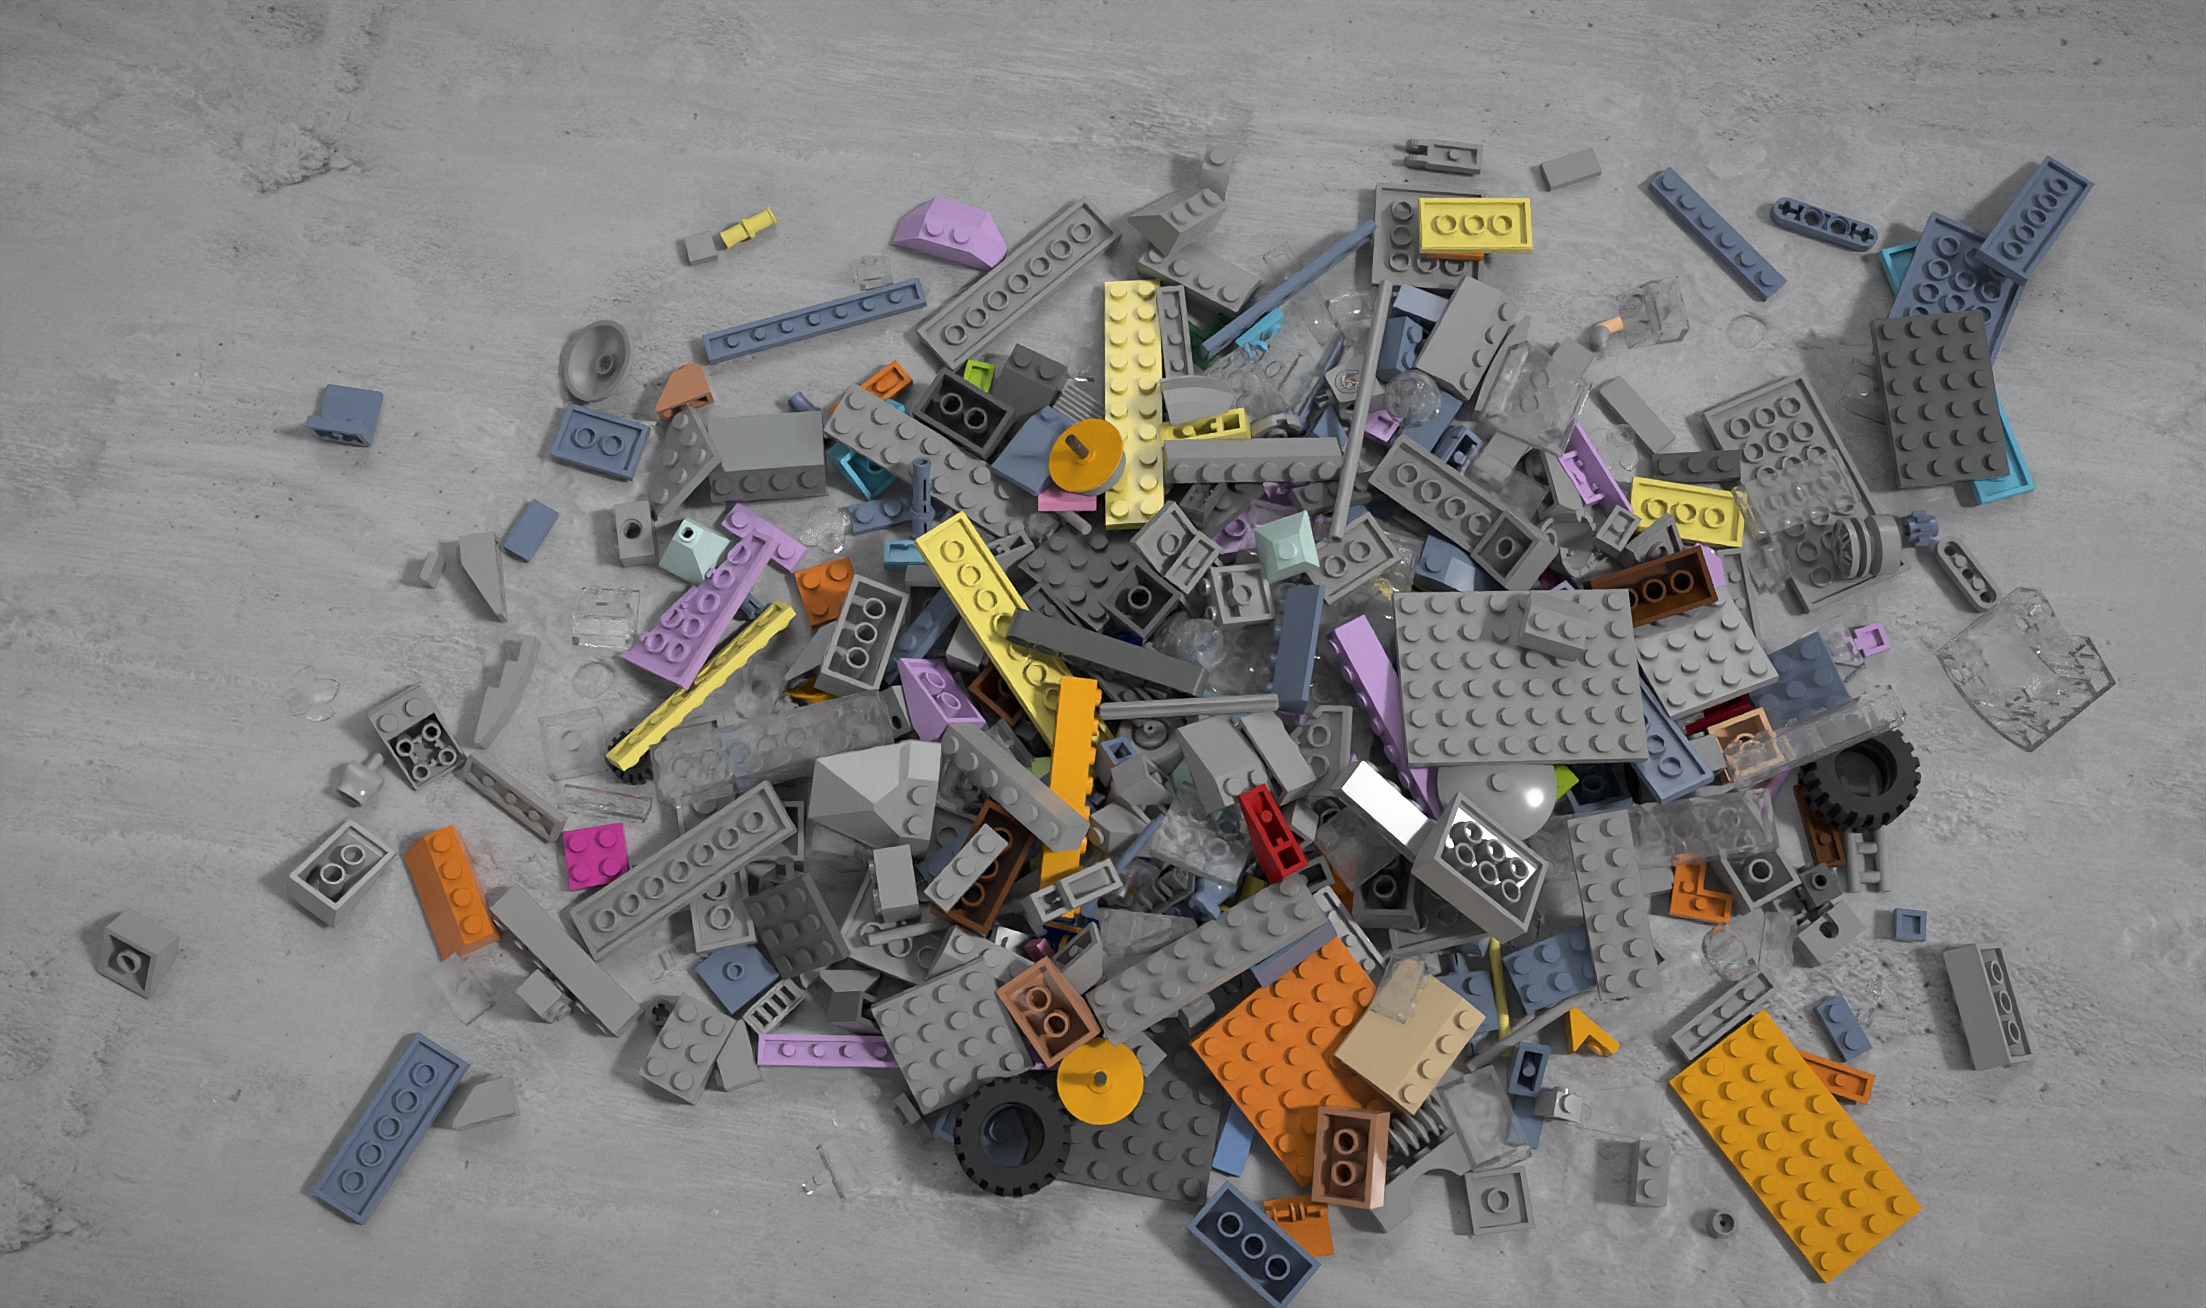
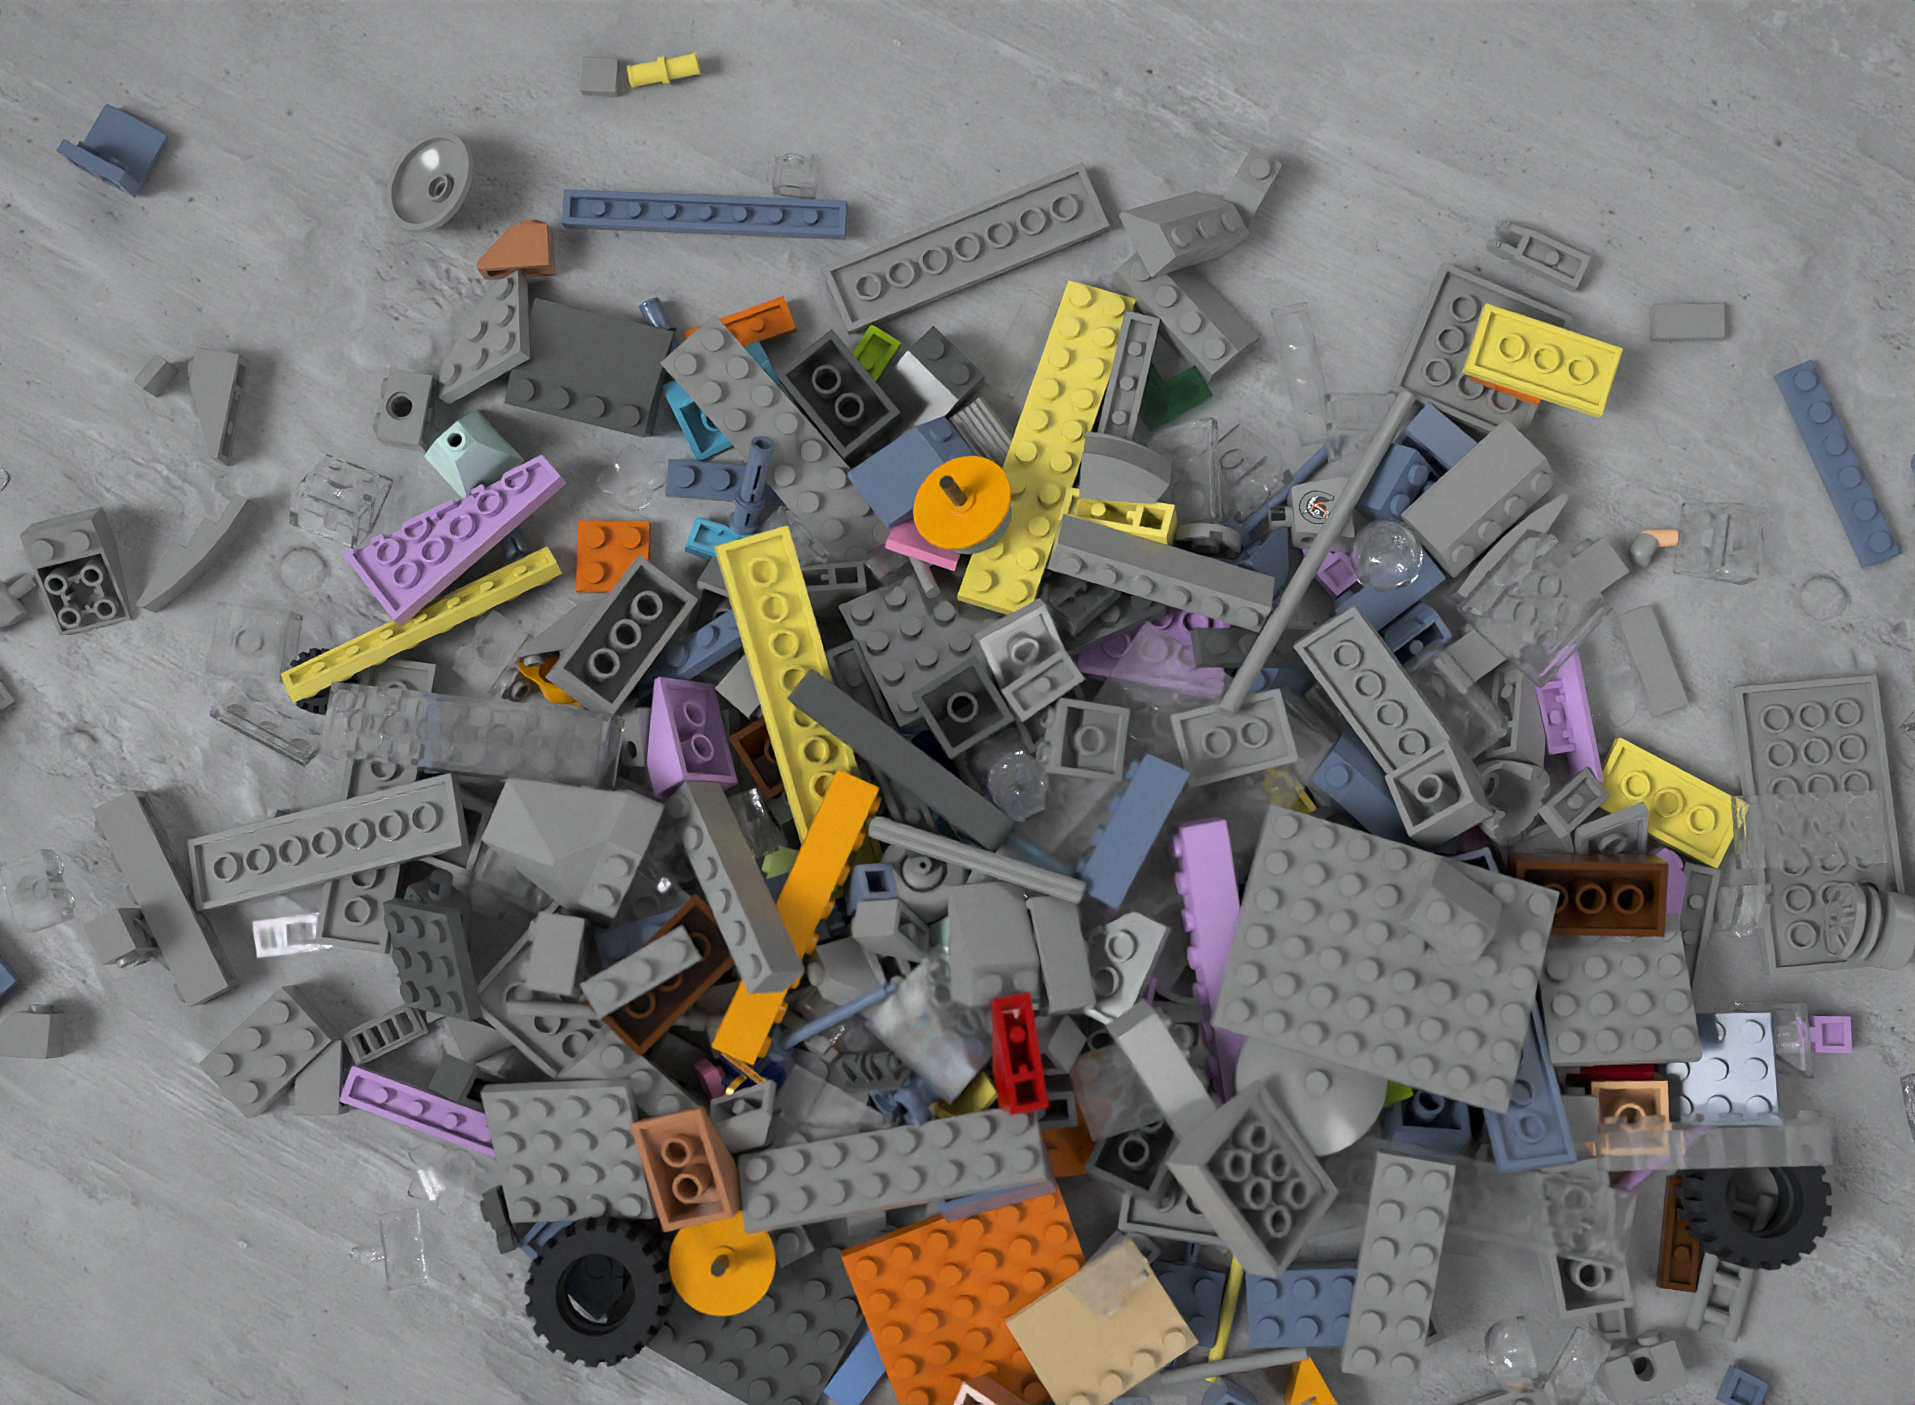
camera: 15 degrees right, 10 degrees up
(451, 893) = (62, 772): orange slope -> none
(514, 796) = (167, 682): light grey plate -> none
(531, 530) = (288, 364): sand blue tile -> none
(595, 856) = (240, 784): dark pink plate -> none
(600, 441) = (403, 281): sand blue plate -> none
(651, 1009) = (244, 998): dark grey bush -> none
(737, 975) = (355, 981): sand blue plate -> none
(742, 521) = (539, 439): lavender plate -> none
(953, 233) = (907, 158): lavender wedge -> none
(1071, 893) = (759, 1039): light grey slope -> none
(1266, 327) = (1244, 403): medium azure plate -> none
(1286, 547) = (1164, 699): light aqua slope -> none
(1287, 290) = (1285, 366): sand blue tile -> none
(1351, 934) = (1076, 1189): light grey plate -> none
(1692, 901) = (1496, 1276): orange plate -> none
(1697, 466) = (1700, 750): dark grey plate -> none
(1817, 885) = (1652, 1310): dark grey brick -> none

